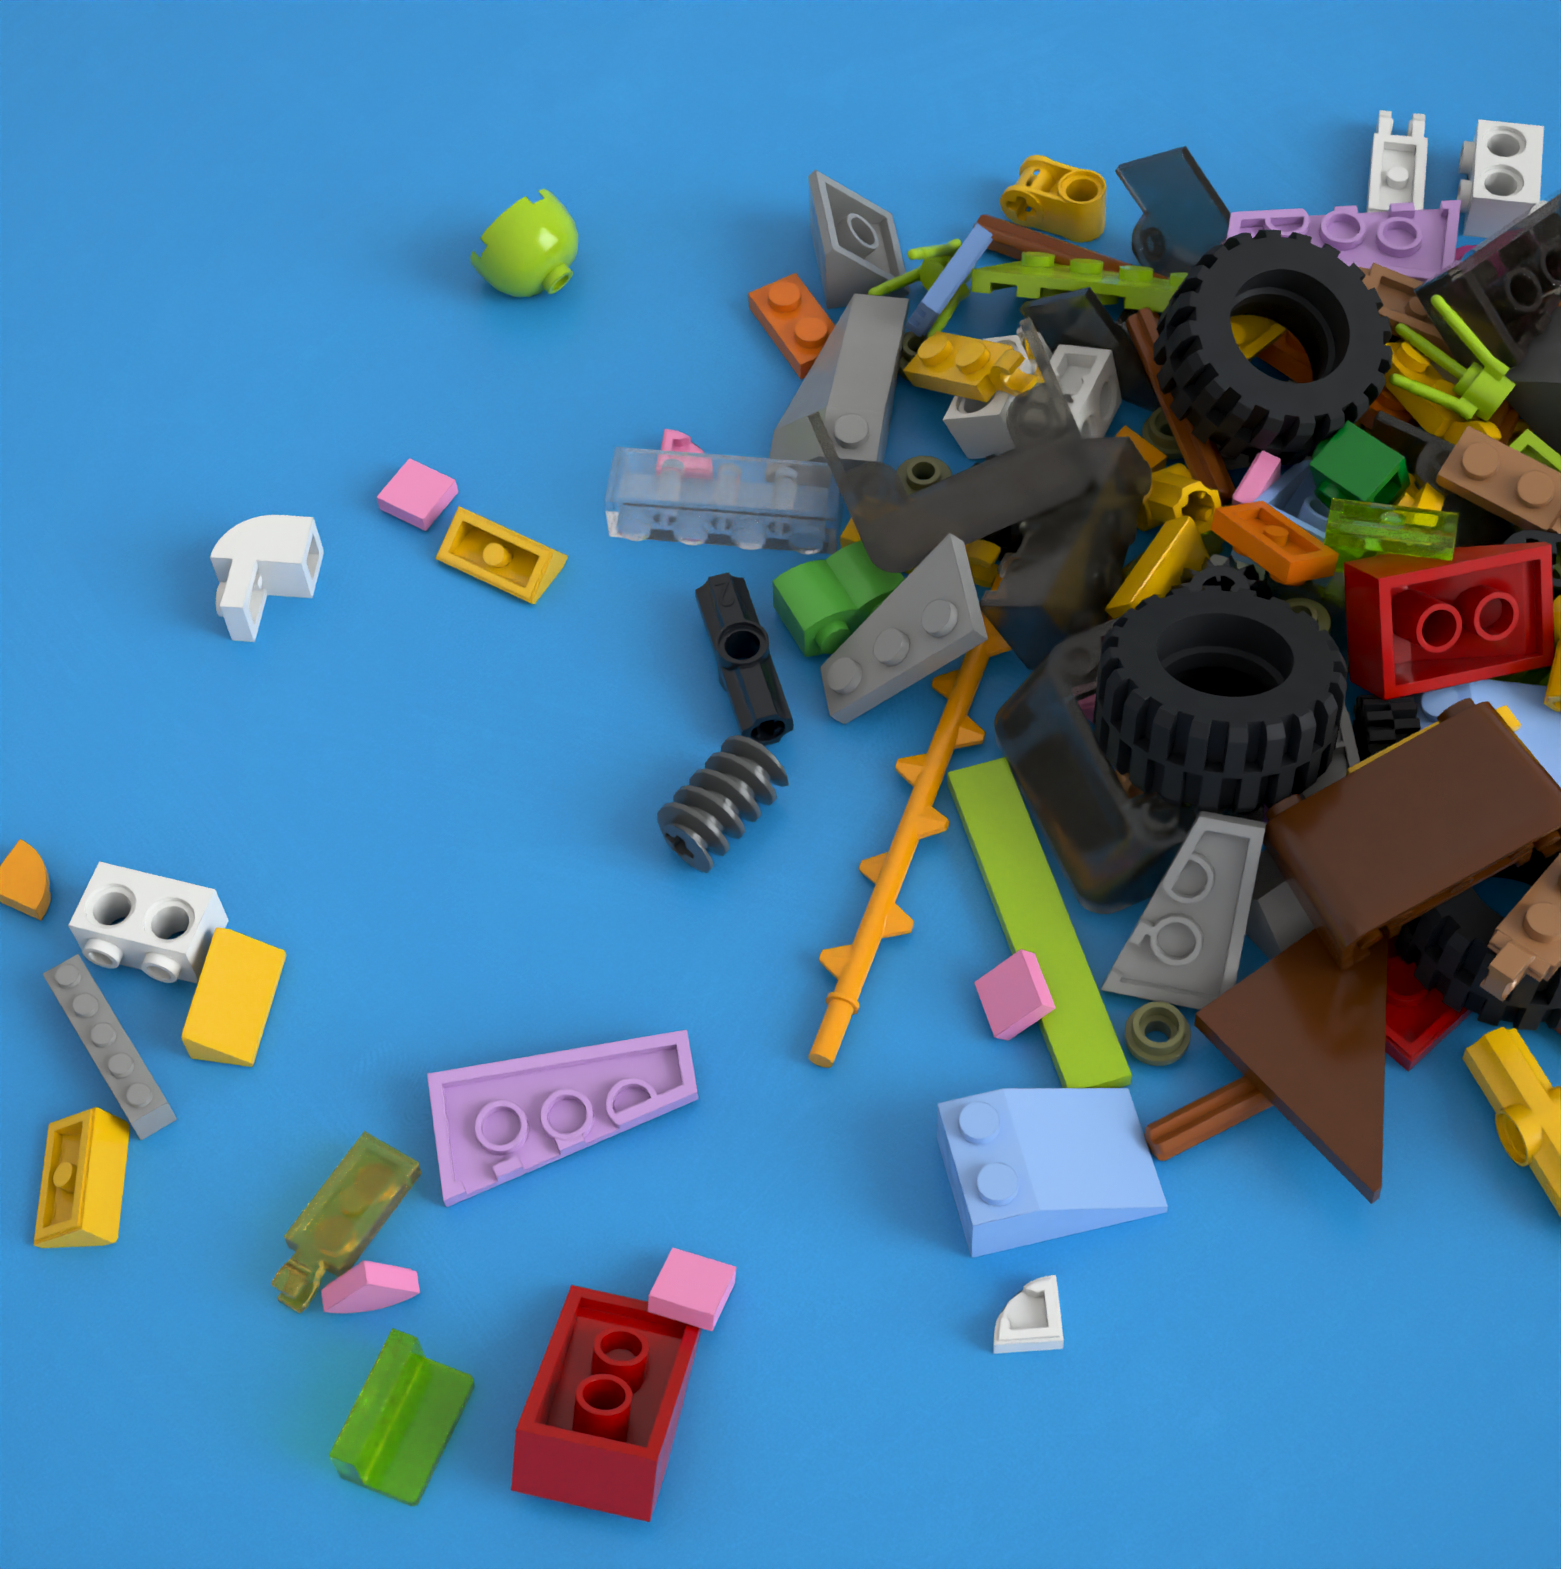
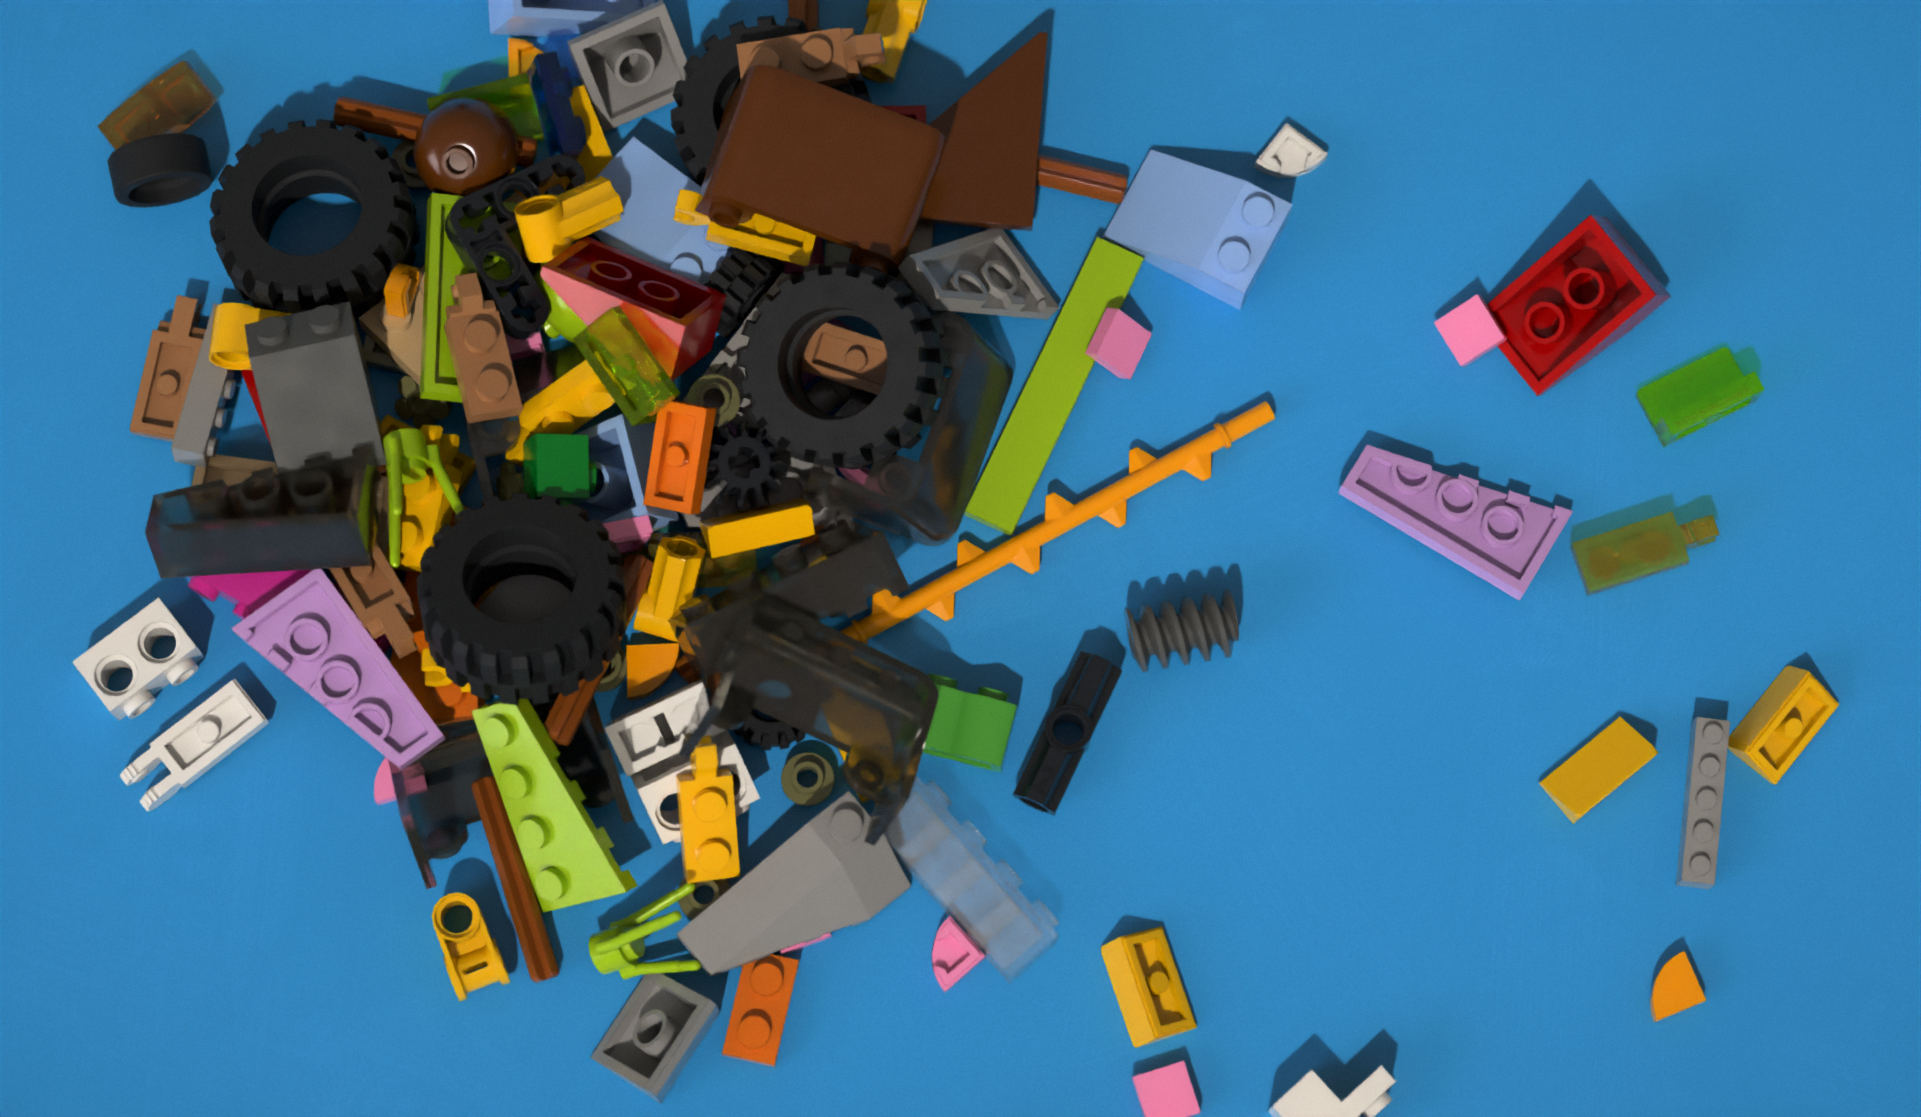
camera: 145 degrees left, 20 degrees up
(153, 912) = (1606, 876): white brick -> none
(369, 1288) = (1659, 486): bright pink tile -> none
(909, 635) = (959, 628): light grey wing -> none
(949, 281) = (646, 900): medium blue tile -> none
(1162, 1018) = (1056, 236): olive plate -> none

